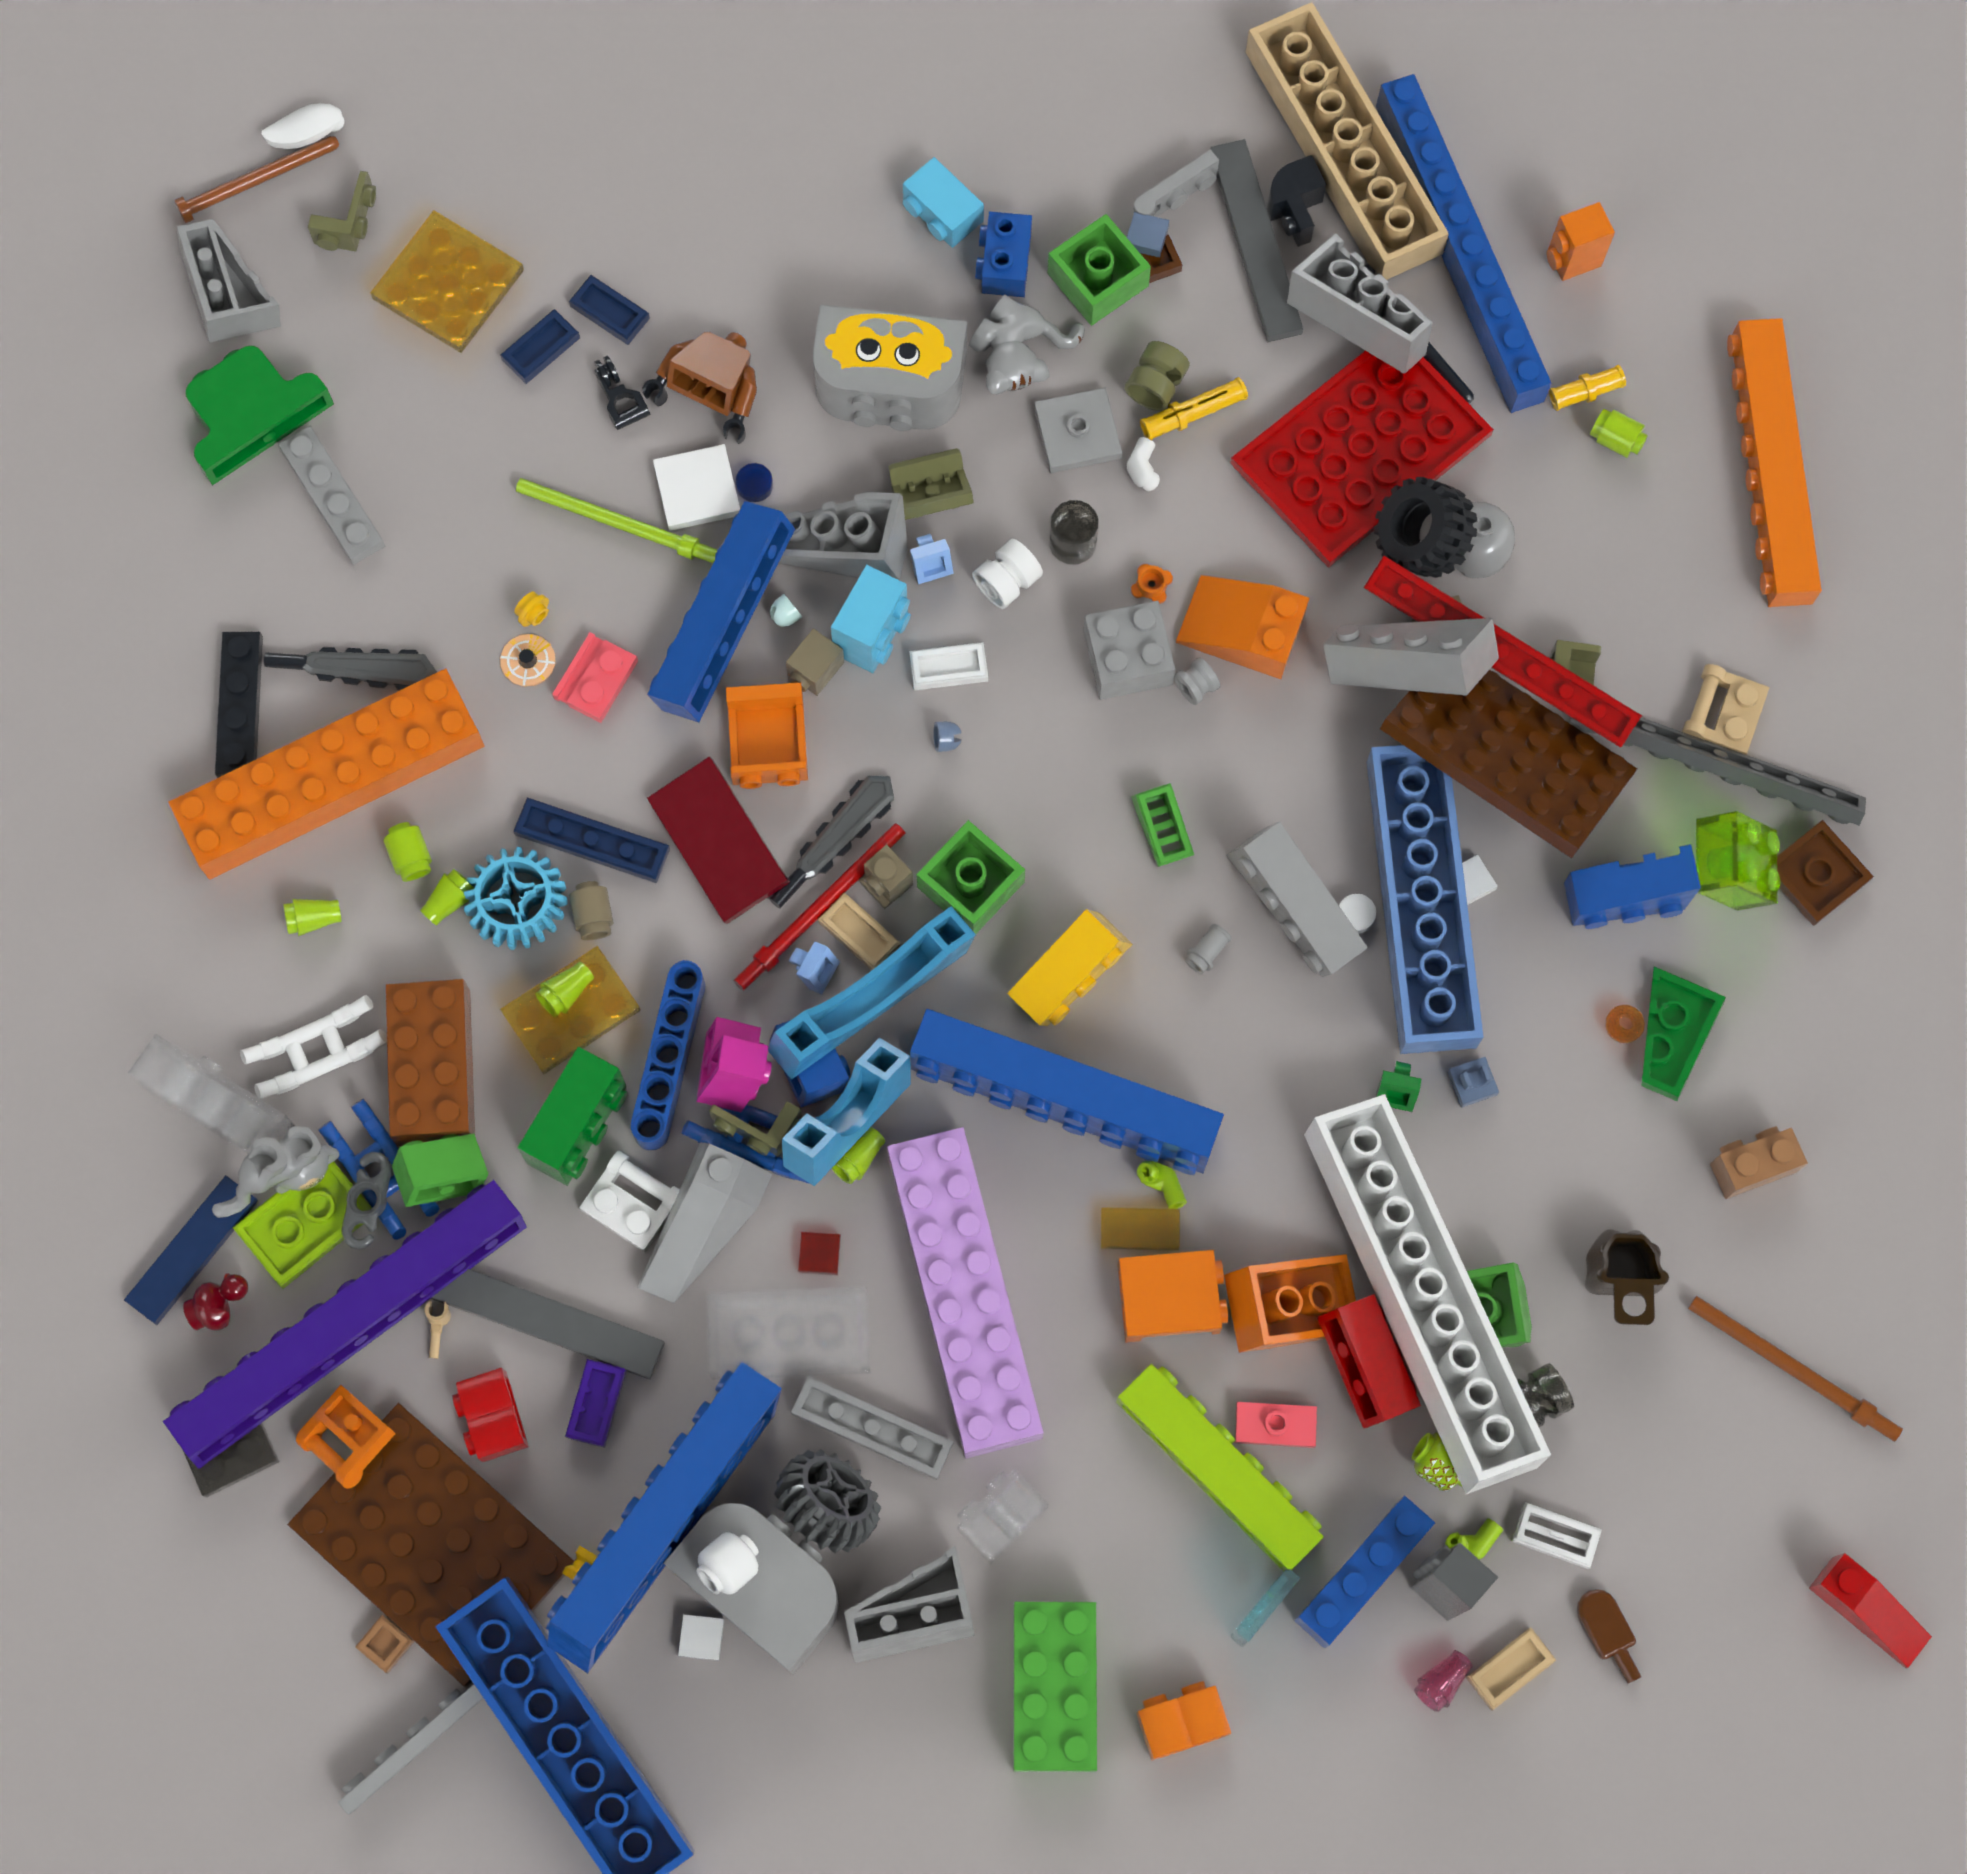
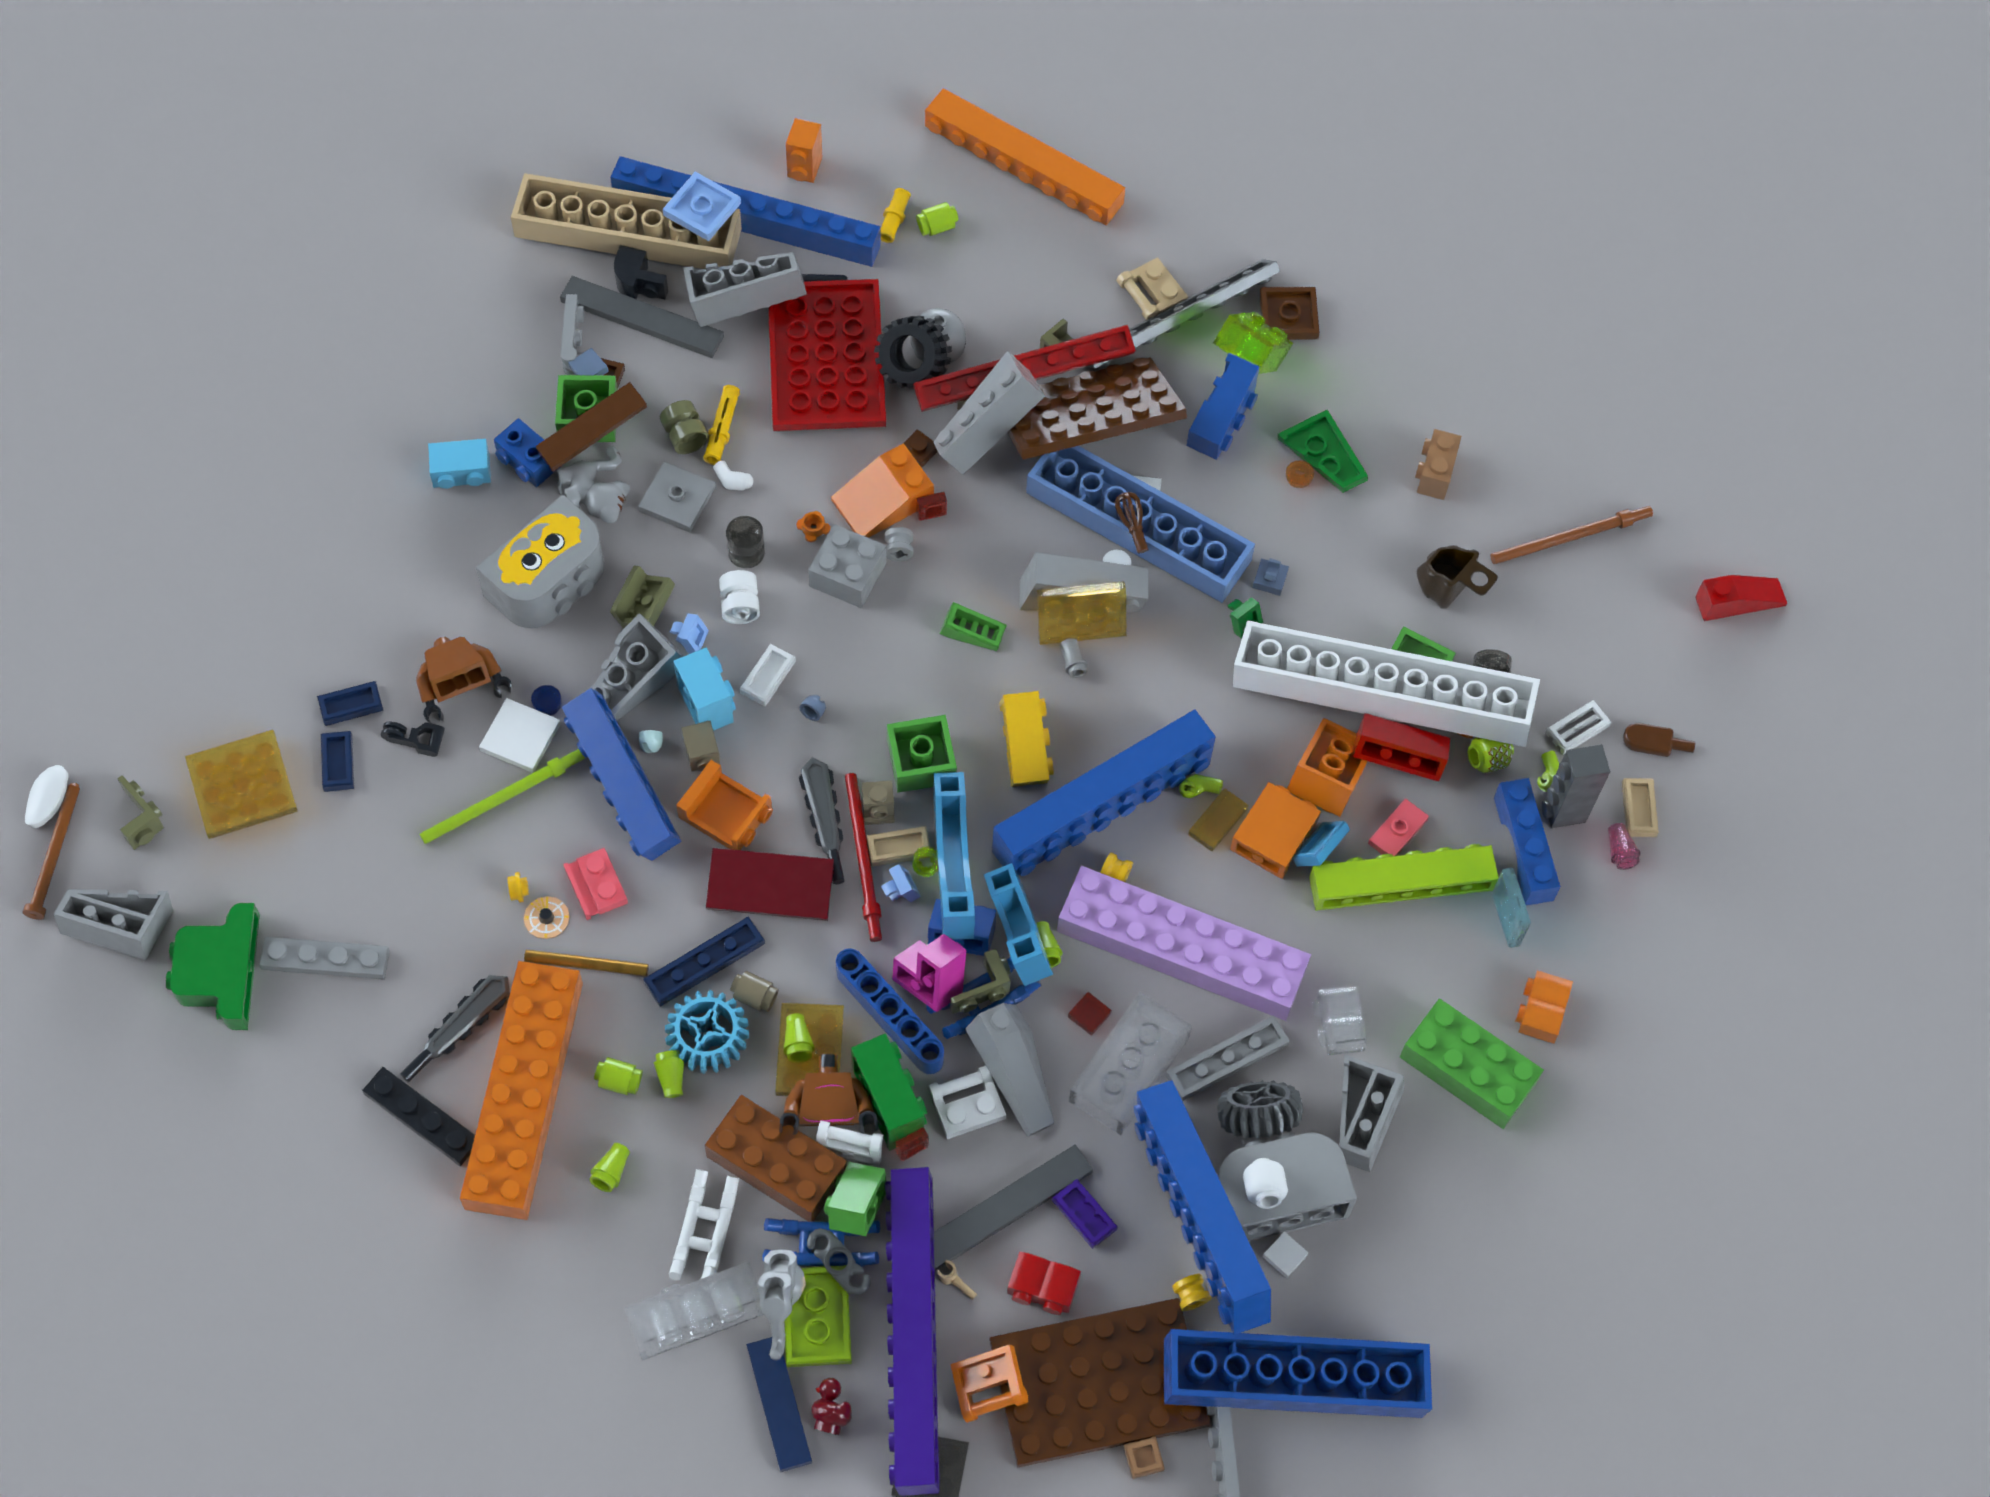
camera: 55 degrees left, 10 degrees down
(489, 1107) = (851, 1144): none -> white plate
(506, 733) = (586, 962): none -> pearl gold bar
(517, 1063) = (828, 1098): none -> dark orange torso
(543, 1181) = (912, 1144): none -> clear red tile
(849, 967) = (918, 865): none -> clear neon green bush
(995, 1165) = (1116, 868): none -> yellow wheel
(1071, 288) = (591, 426): none -> reddish brown tile
(1187, 1354) = (1321, 843): none -> dark azure tile
(1259, 919) = (1081, 612): none -> clear yellow plate
(1267, 680) = (931, 506): none -> clear red tile
(1327, 616) = (921, 447): none -> reddish brown plate
(1396, 902) = (1134, 525): none -> reddish brown piece
(1415, 194) = (701, 206): none -> light blue plate

